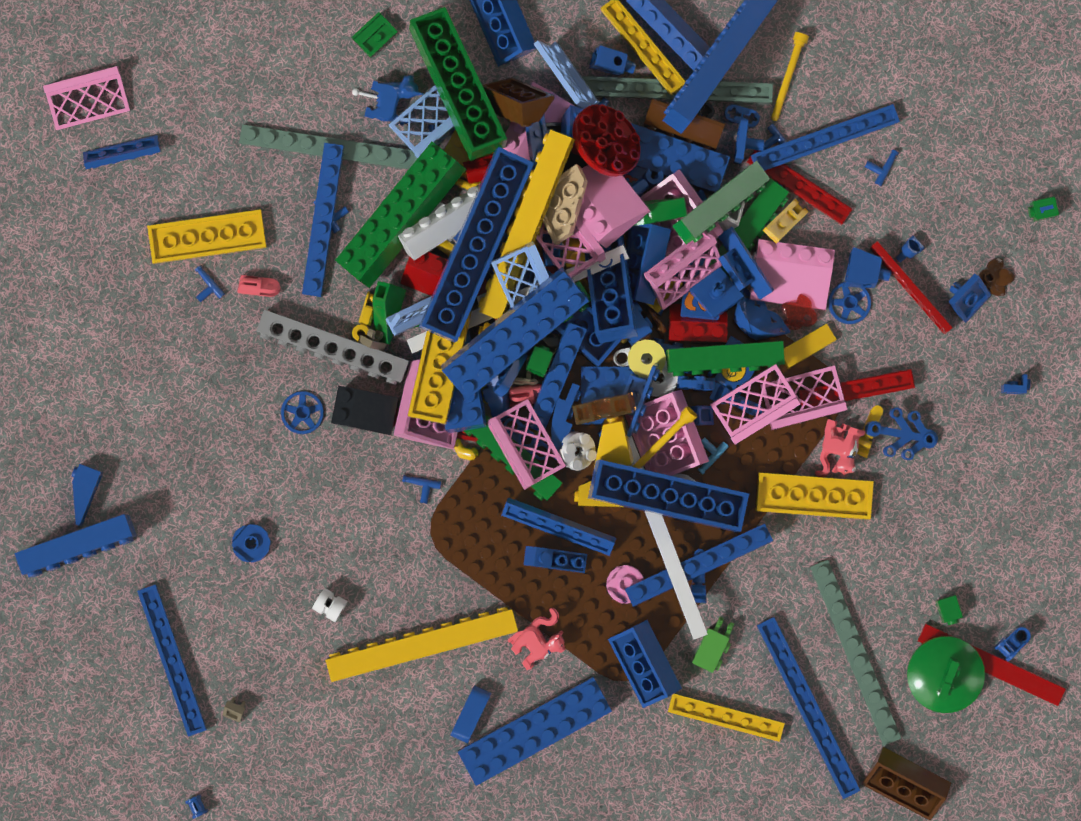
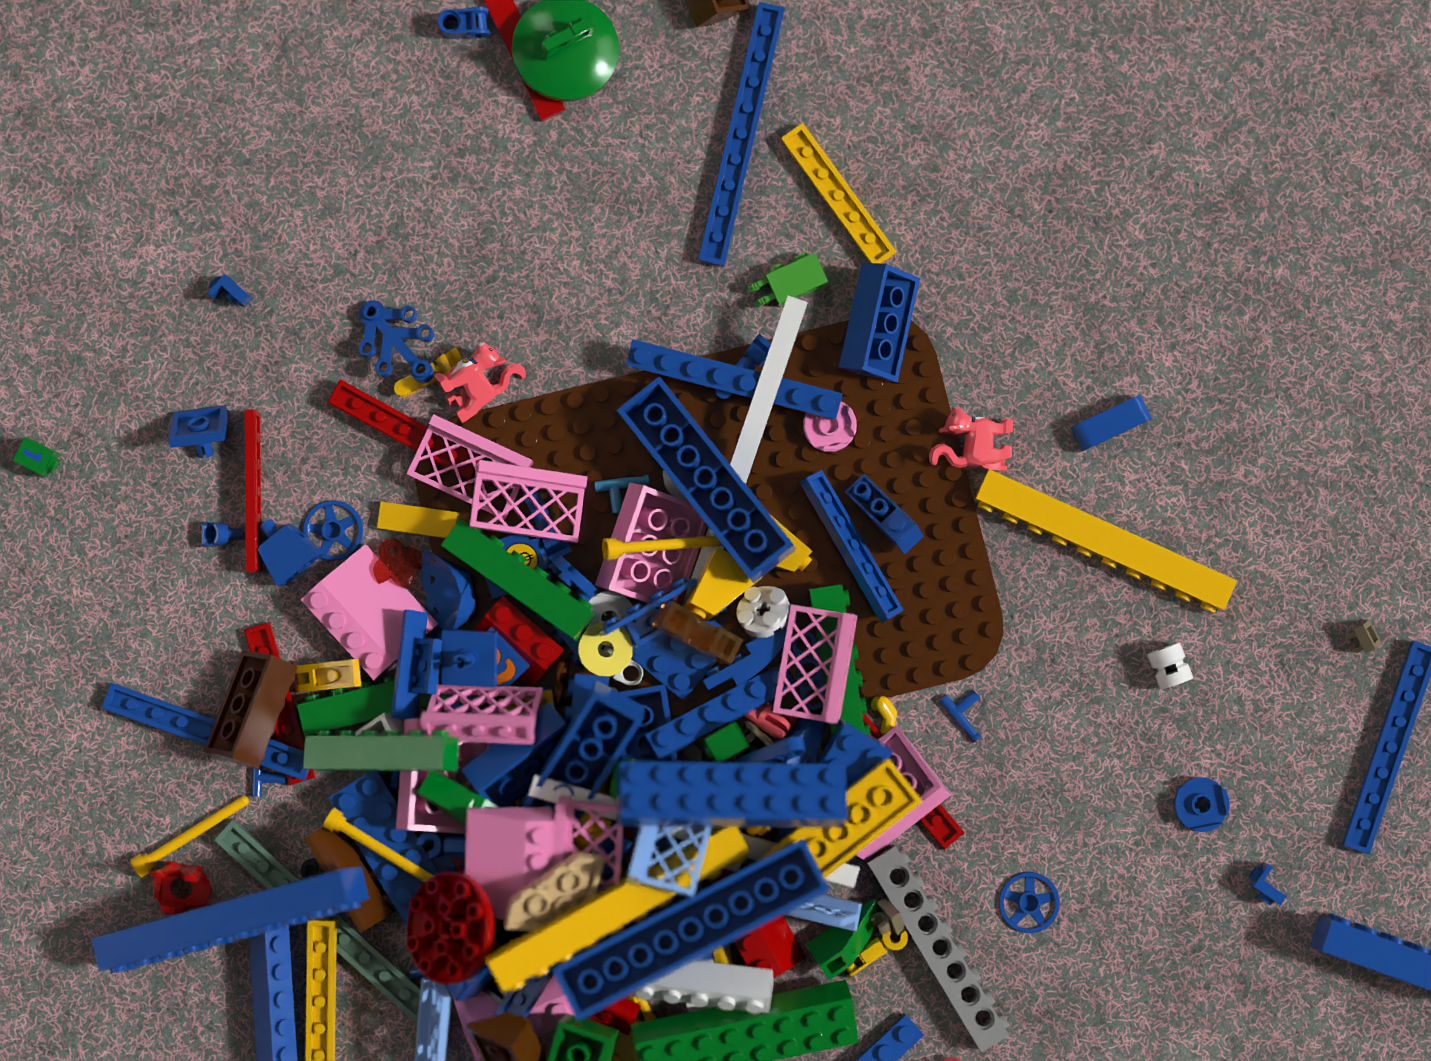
camera: 140 degrees left, 0 degrees up
(84, 488) = (1337, 1016): blue slope -> none
(177, 524) = (1266, 892): none -> blue bracket
(364, 410) = (960, 847): black slope -> none
(534, 731) = (1057, 348): blue brick -> none
(604, 58) = (379, 1019): blue torso -> none
(704, 415) = (593, 537): blue slope -> none
(713, 147) = (337, 822): none -> yellow piece
(743, 111) = (272, 836): blue beam -> none
(744, 142) = (299, 800): blue tile -> none
(777, 34) = (163, 892): none -> red piece
(812, 169) = (250, 709): none -> reddish brown slope
(814, 496) = (546, 352): yellow plate -> none
(855, 652) = (642, 151): sand green plate -> none
(882, 172) = (176, 643): blue piece -> none
(949, 610) = (503, 113): green brick -> none
(998, 277) = (147, 425): reddish brown plate -> none

